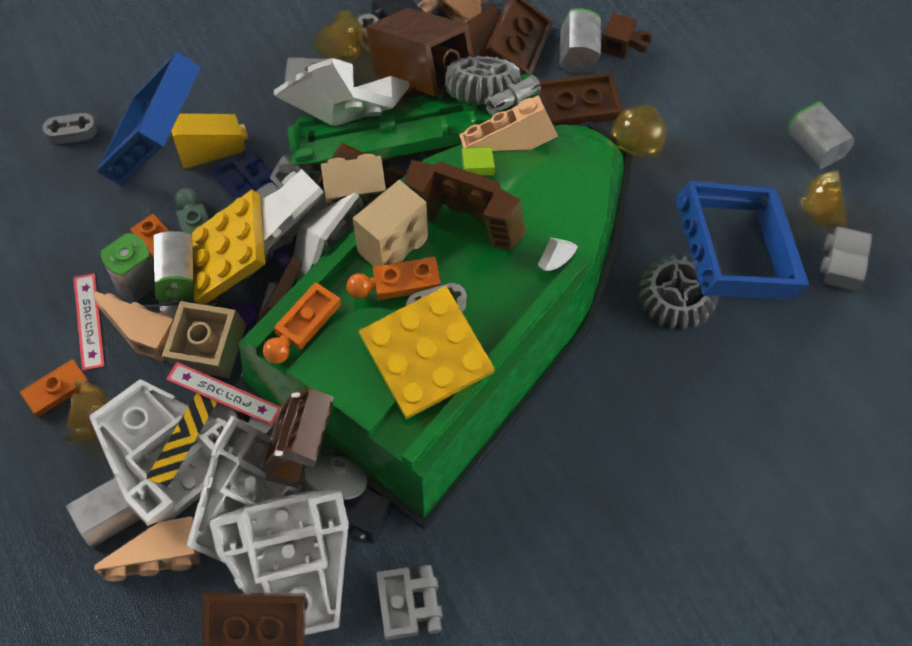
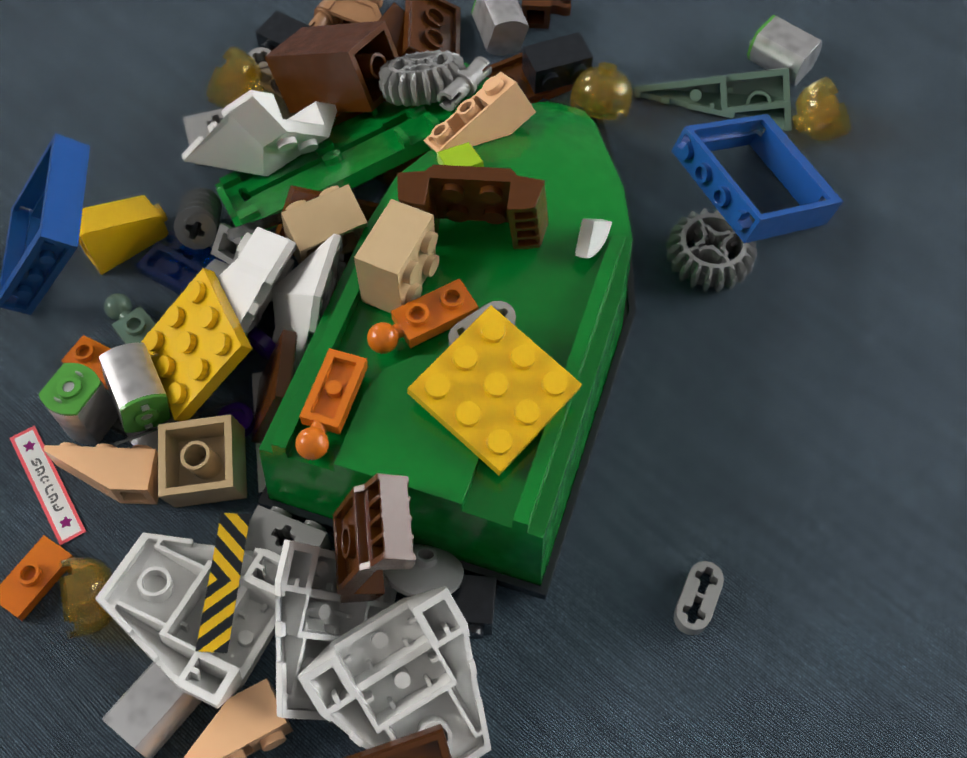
camera: 20 degrees left, 0 degrees up
(224, 393) = (251, 516): sticker -> none
(269, 145) = (198, 218): none -> dark grey piece
(398, 606) = (550, 696): light grey plate -> none
(540, 565) = (707, 600): none -> light grey beam
(611, 92) = (555, 62): none -> black piece
(756, 163) = (729, 95): none -> sand green wedge
(846, 258) = (864, 166): light grey brick -> none

